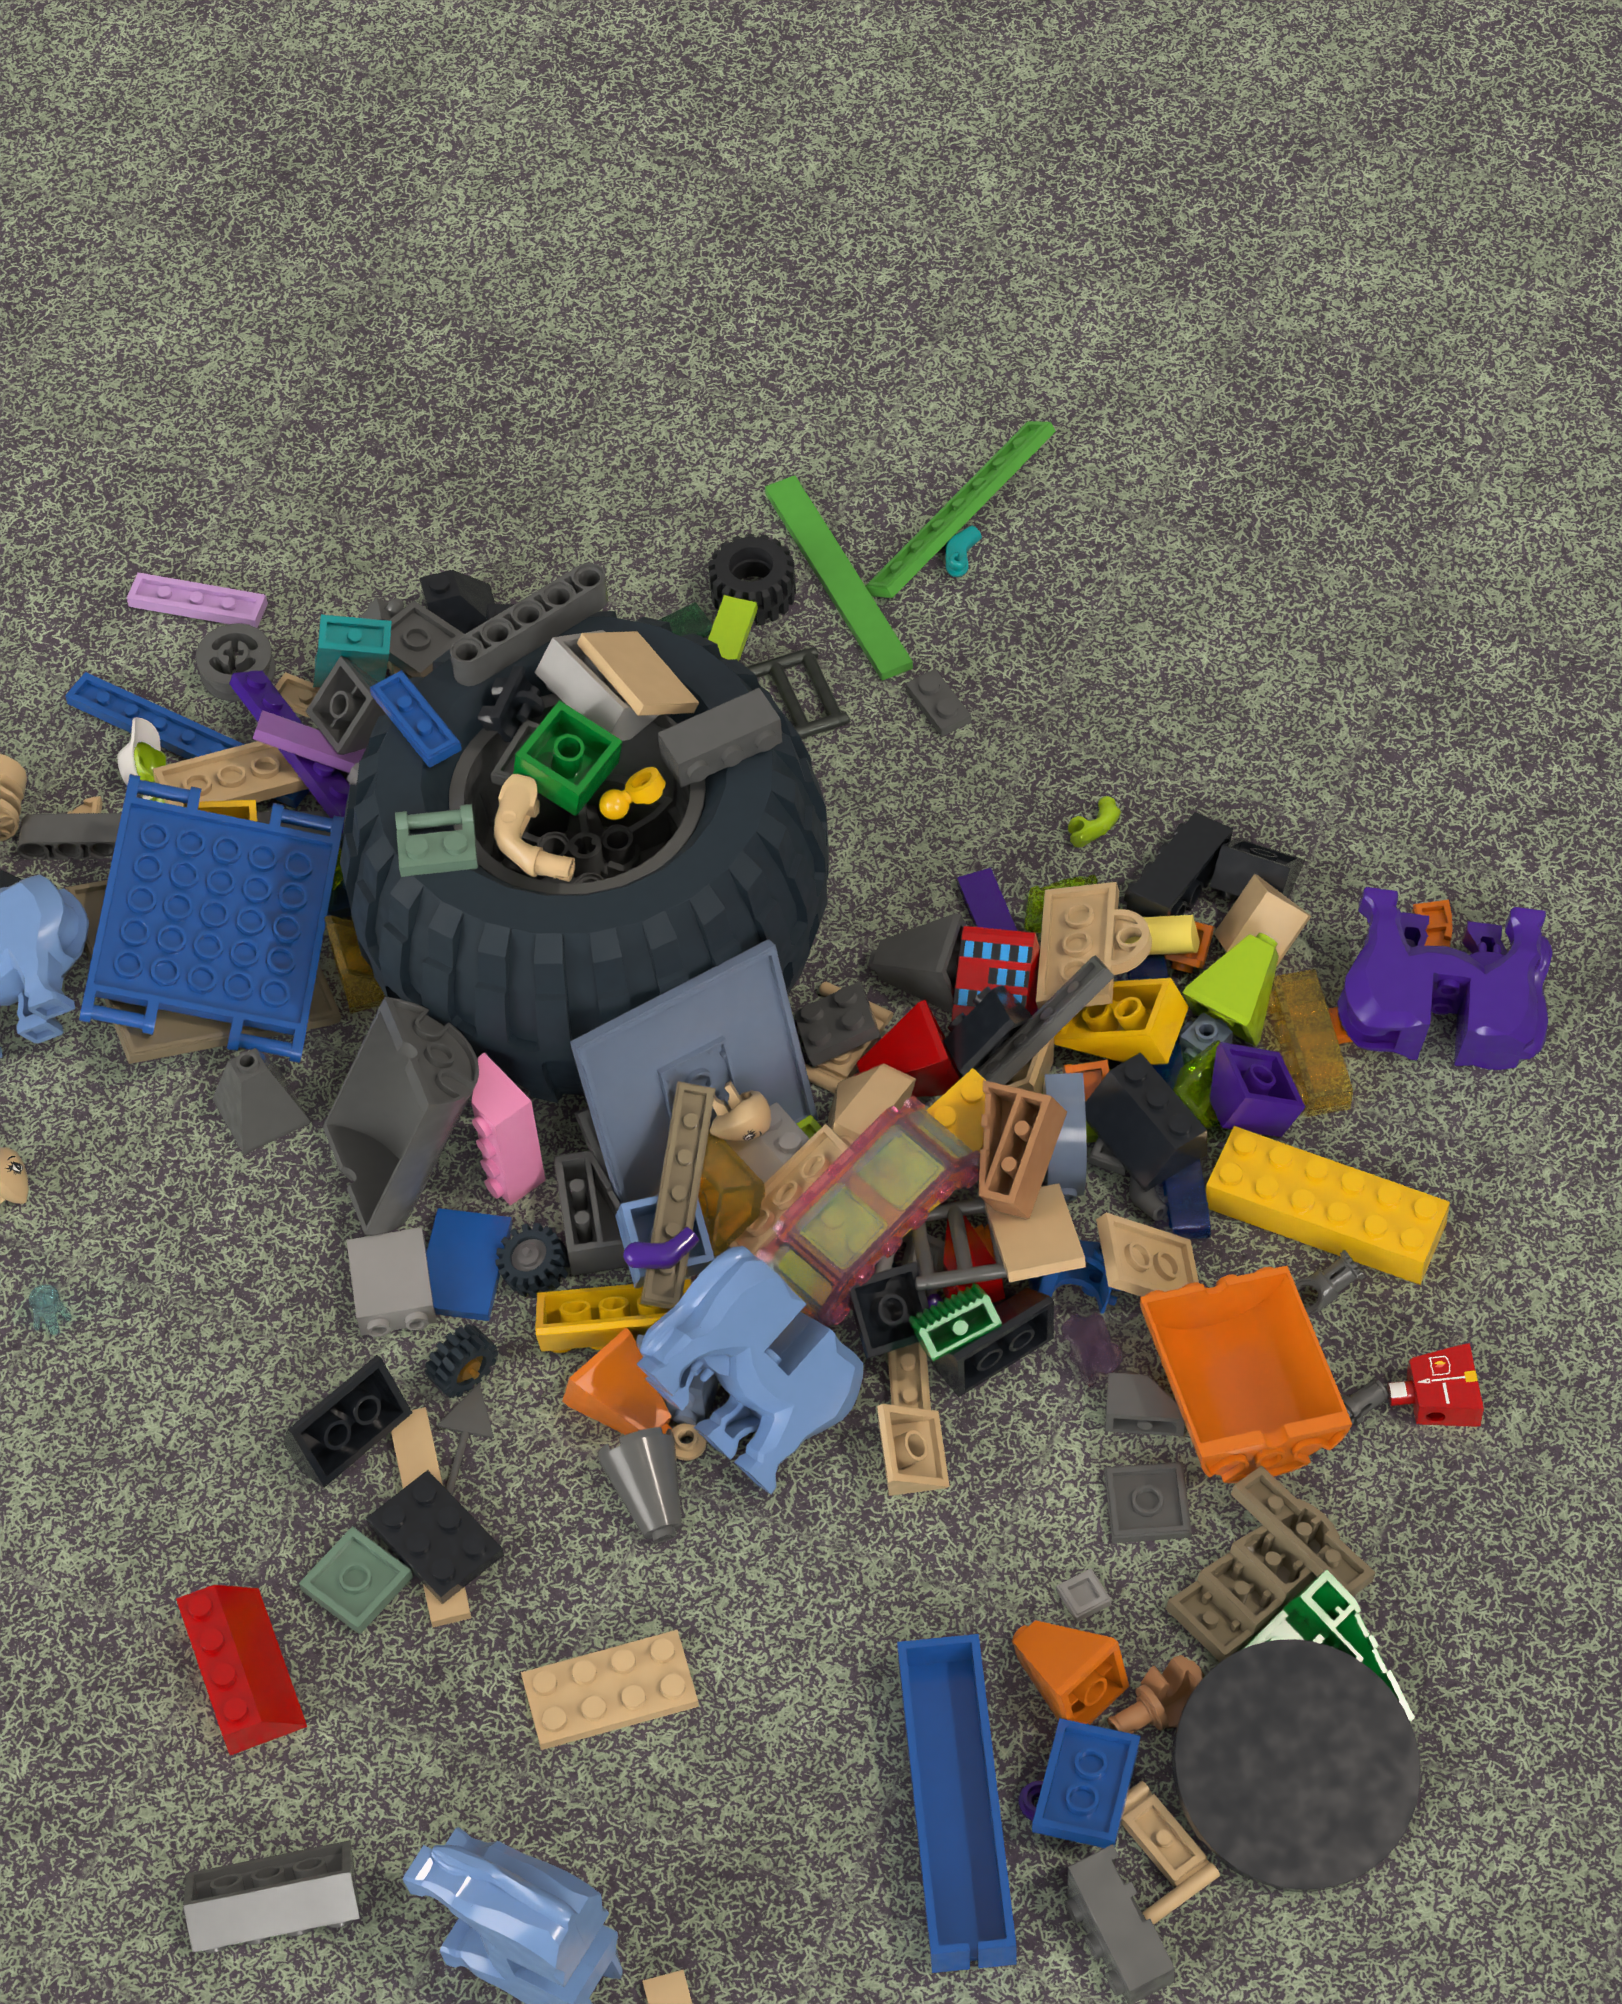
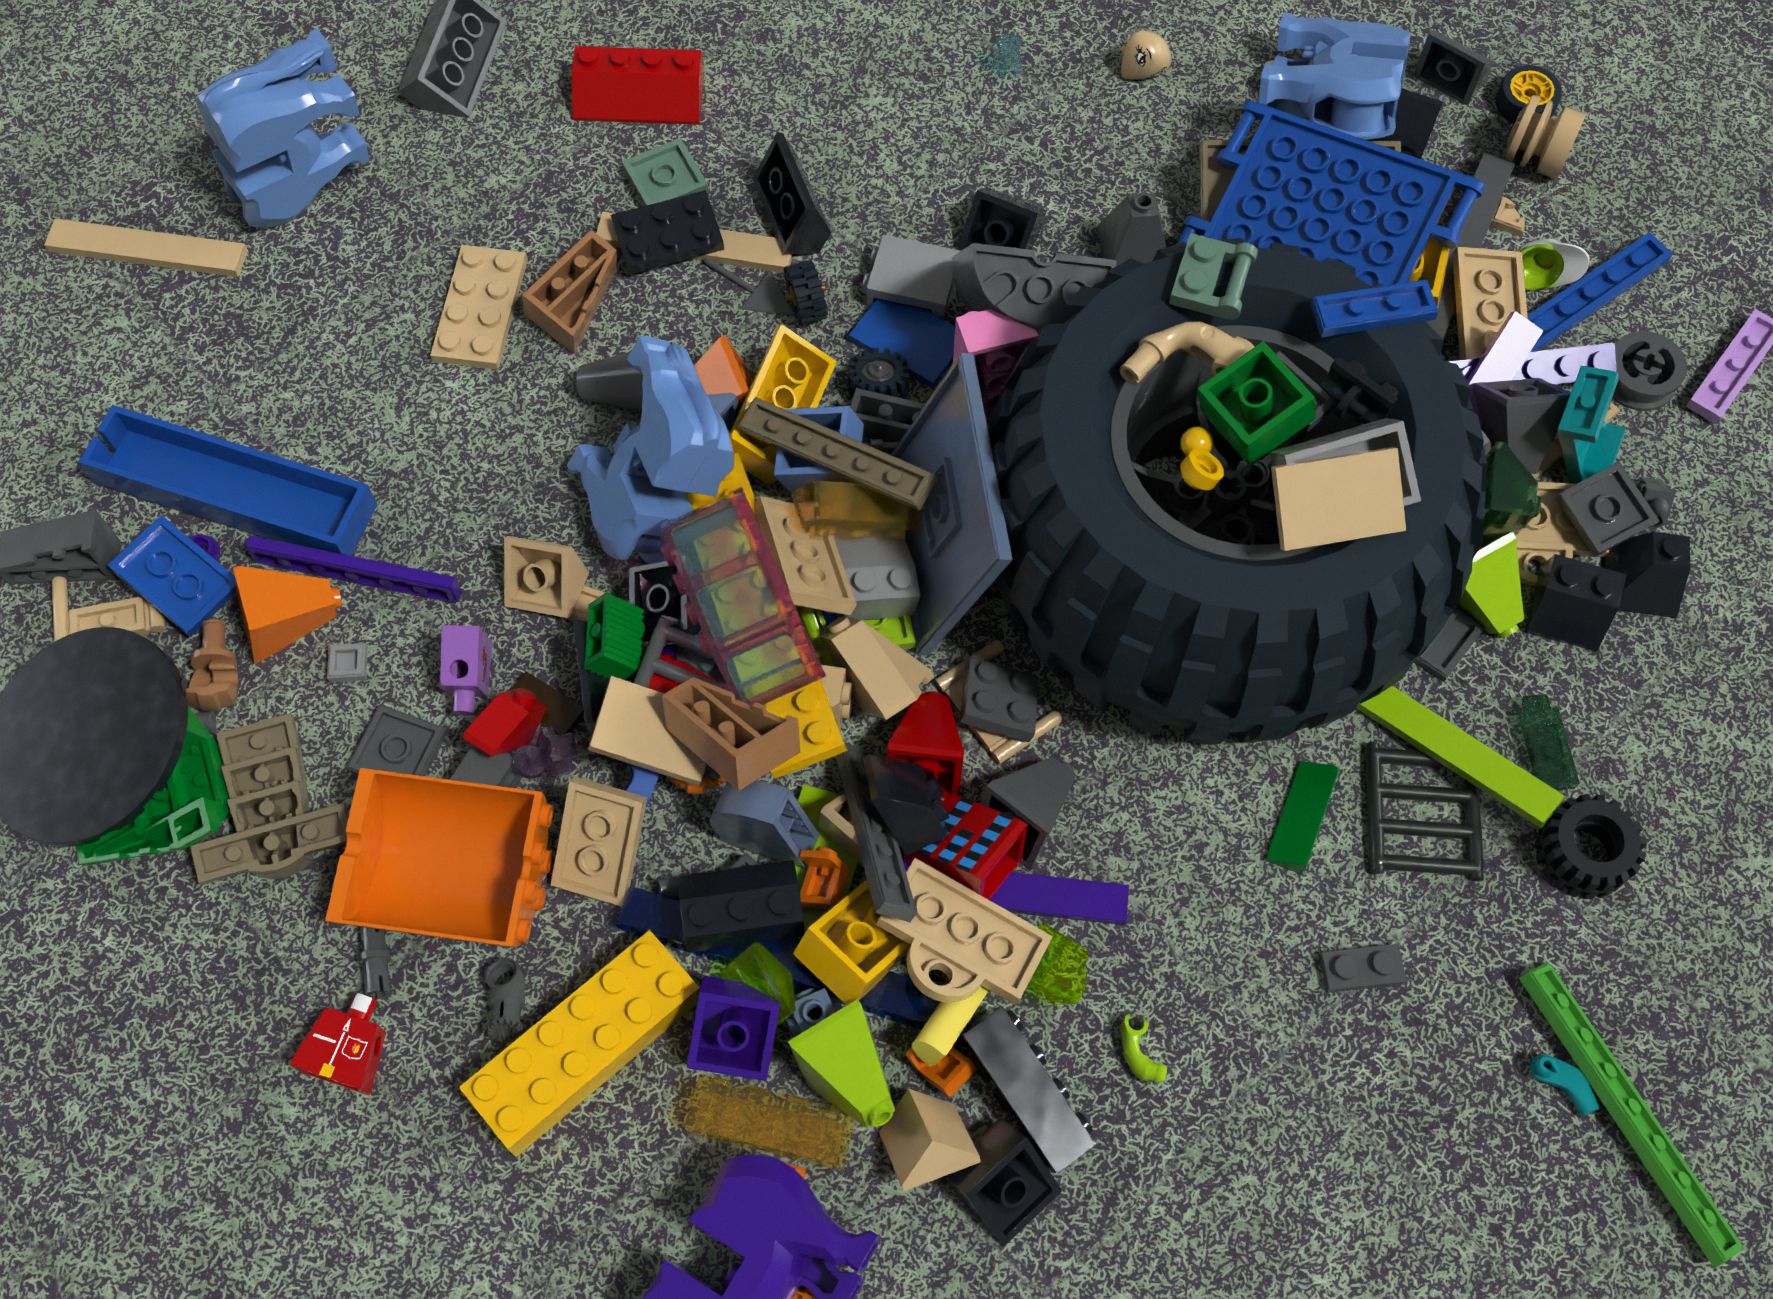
camera: 110 degrees right, 10 degrees up
(292, 1225) = (1001, 221): none -> black slope
(529, 624) = (1450, 452): dark grey beam -> none
(556, 1587) = (572, 290): none -> medium nougat wedge
(660, 1255) = (781, 415): dark purple arm -> none
(720, 737) = (1223, 547): dark grey brick -> none
(743, 1118) = (901, 544): tan piece -> none
(839, 578) = (1575, 942): bright green tile -> none
(846, 776) = (1302, 816): none -> green slope
(988, 1638) = (354, 569): none -> dark purple tile
(1034, 1397) = (561, 711): none -> dark brown tile
(1036, 1467) = (462, 653): none -> medium lavender torso
(1078, 1396) = (506, 722): none -> red slope

